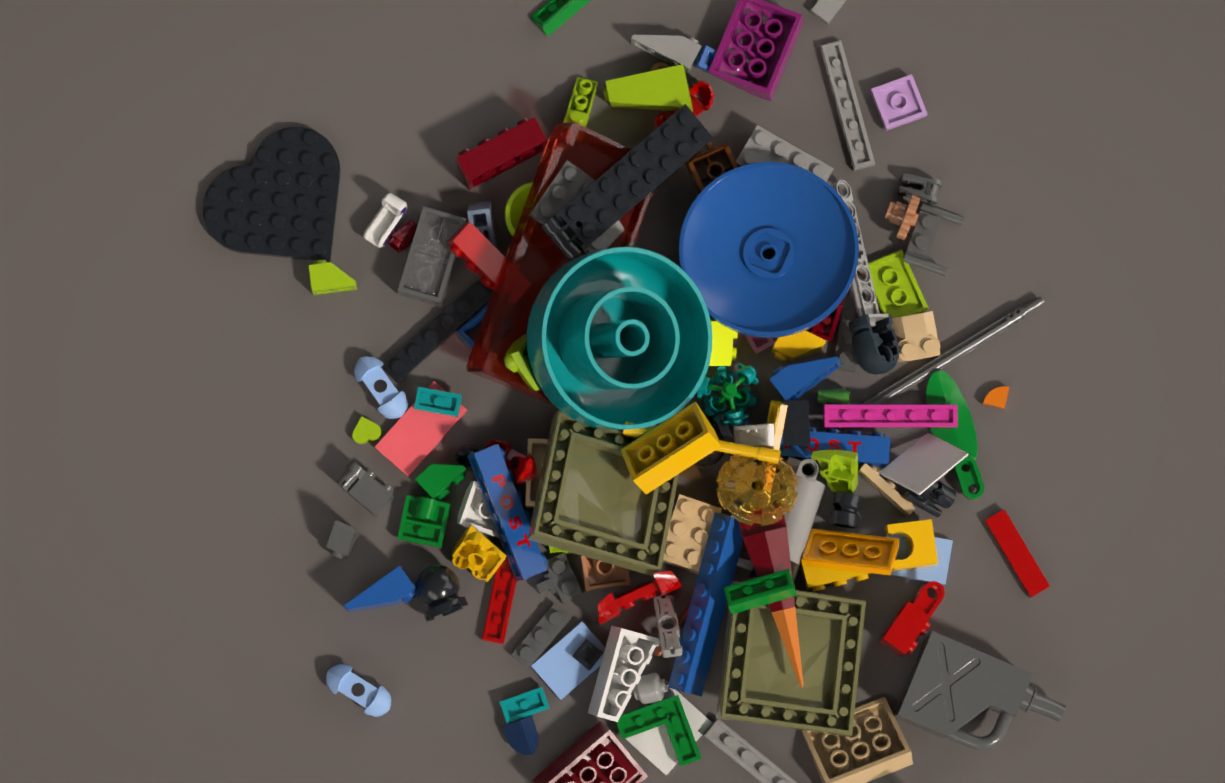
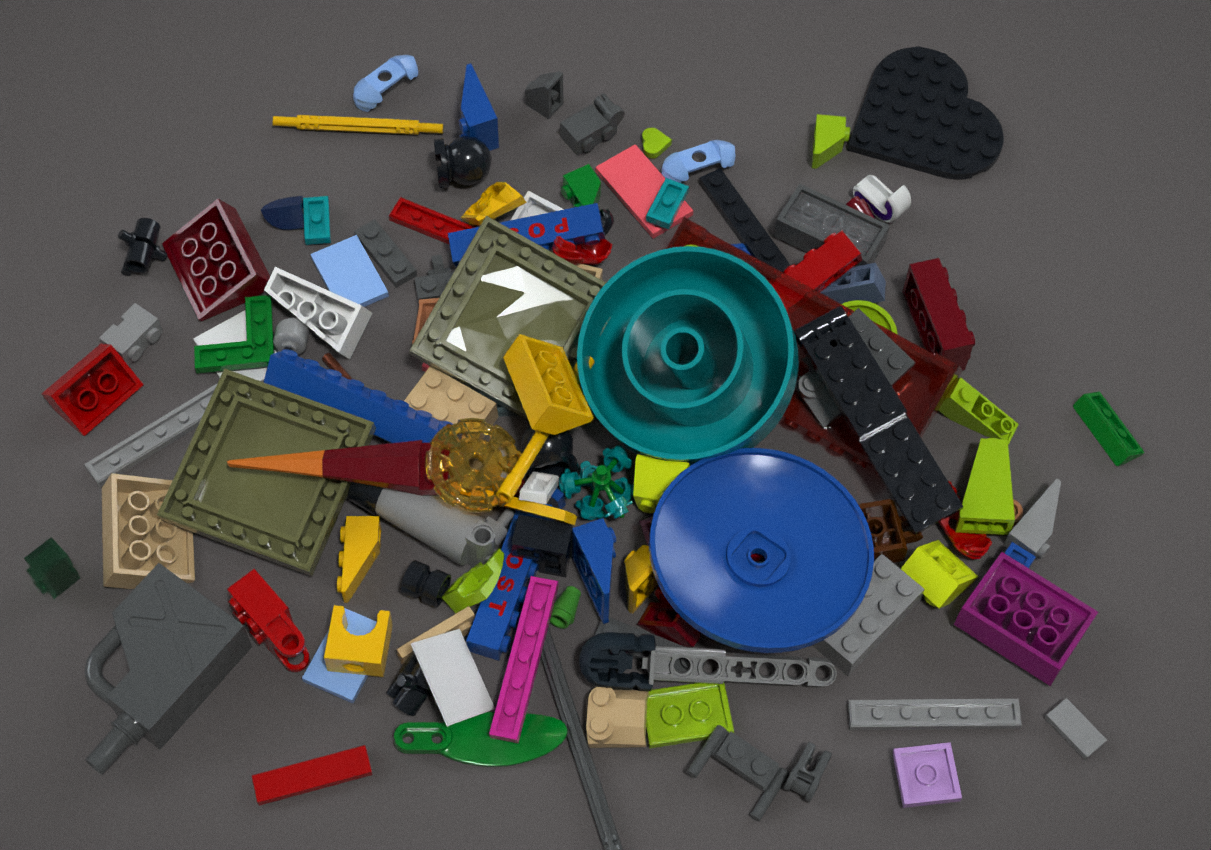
camera: 110 degrees right, 20 degrees down
(411, 701) = (355, 124): none -> yellow axle
(424, 521) = (542, 171): green plate -> none
(587, 654) = (349, 285): black tile -> none
(663, 584) = (397, 344): red piece -> none
(668, 637) = (366, 367): light grey piece -> none
(733, 118) = (938, 573): none -> neon yellow slope
(760, 591) = (351, 437): green slope -> none
(850, 551) = (371, 568): light orange tile -> none
(903, 215) = (774, 736): nougat plant -> none
(997, 397) = (515, 801): orange tile -> none

